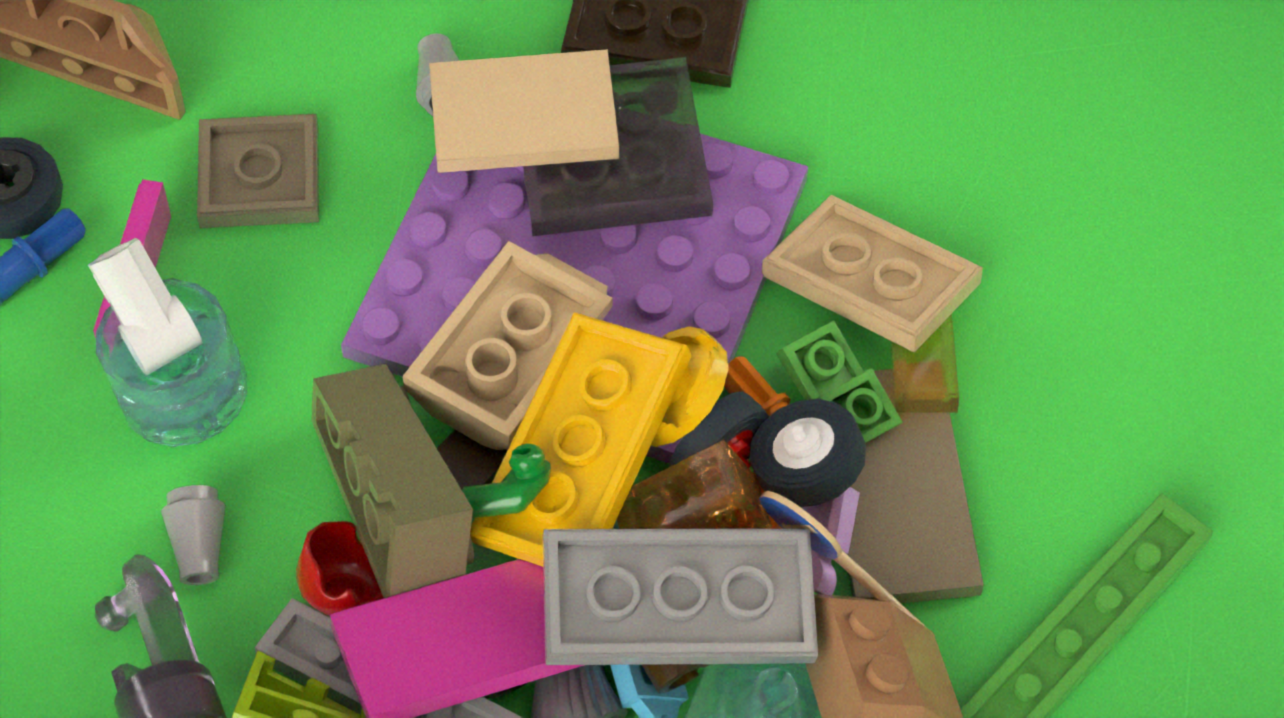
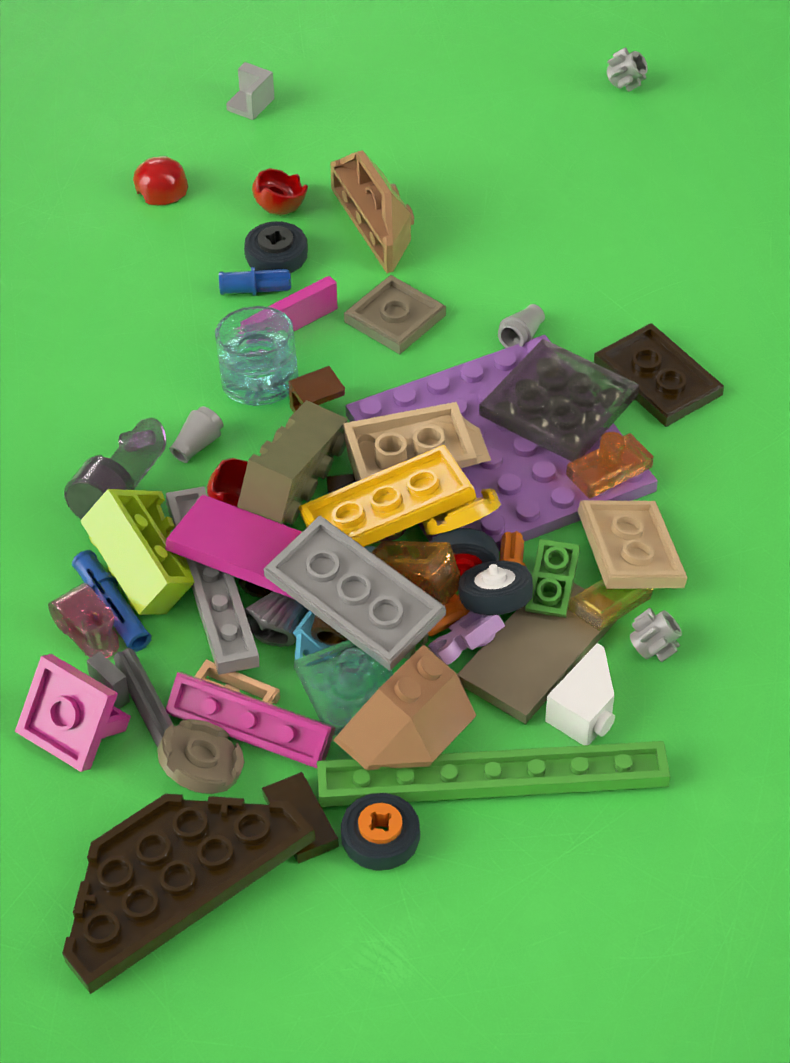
camera: 45 degrees right, 10 degrees down
(150, 318) = (255, 323): white piece -> none
(292, 358) = (315, 387): none -> reddish brown panel
(517, 490) = (329, 498): green arm -> none
(523, 111) = (528, 354): tan tile -> none
(750, 189) = (609, 465): none -> clear orange tile
(791, 516) = (460, 648): tan piece -> none
(1017, 367) = (655, 634): none -> light grey gear
(1027, 509) = (583, 699): none -> white slope

